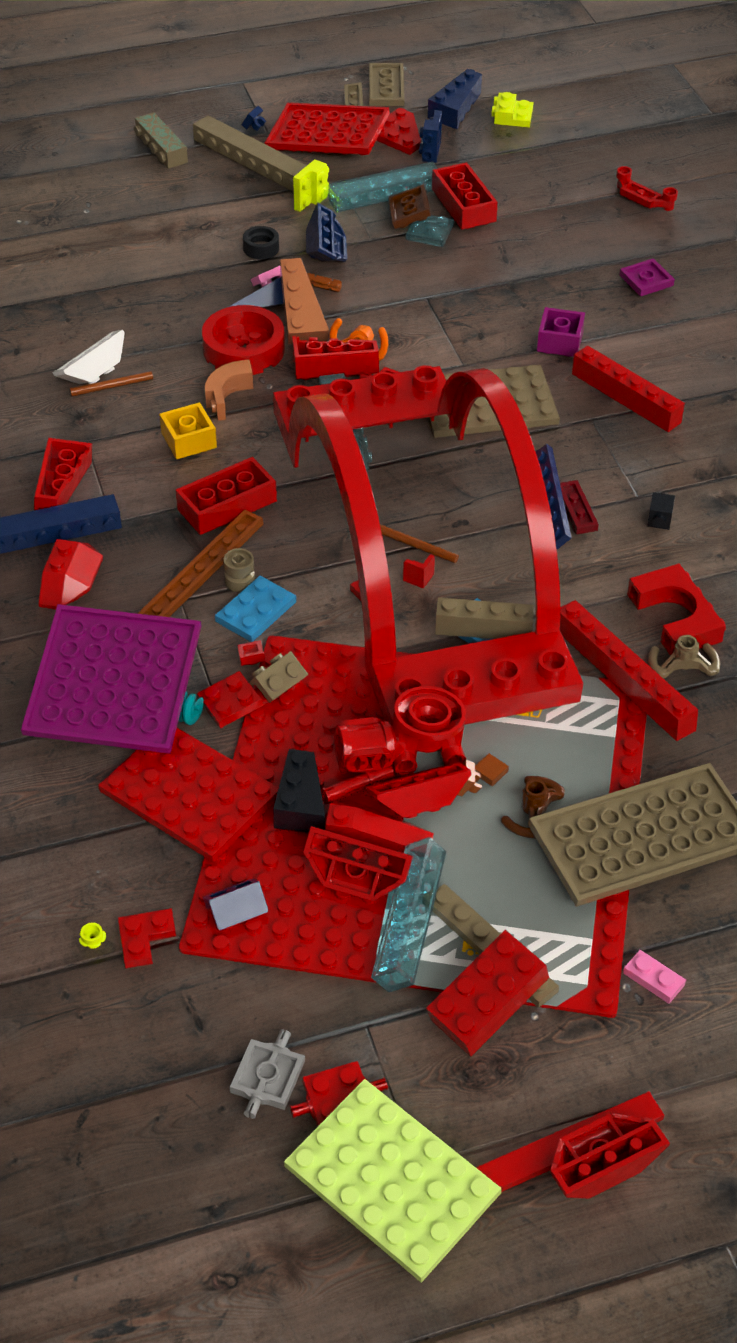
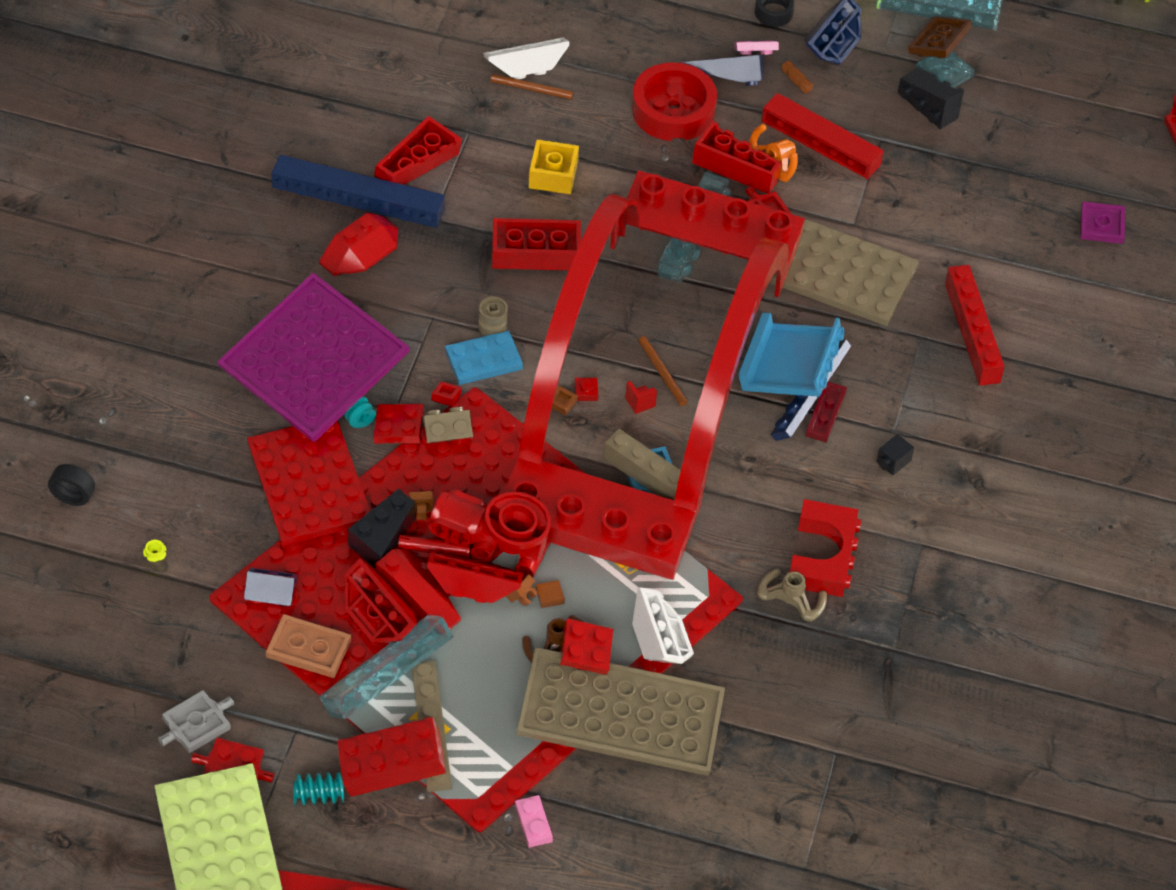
camera: 30 degrees right, 5 degrees up
(139, 930) = (192, 566): red plate -> none
(203, 565) = (464, 299): dark orange plate -> none
(224, 381) = (624, 134): nougat arch -> none
(301, 306) = (744, 93): nougat wedge -> none
(317, 746) = (423, 503): none -> dark orange tile
(319, 937) = (308, 646): none -> nougat plate
(353, 607) = (564, 400): none -> dark orange plate
(384, 312) = (822, 136): none -> red brick
(441, 248) = (931, 97): none -> black wedge
(441, 1063) = (318, 788): none -> teal piece
(464, 195) = (1002, 50): red brick -> none
(498, 484) = (790, 358): none -> dark azure panel
(560, 332) = (962, 237): magenta brick -> none
(575, 791) = (586, 646): none -> red plate
(614, 746) = (659, 629): none -> white wedge
(628, 671) = (726, 574): red brick -> none

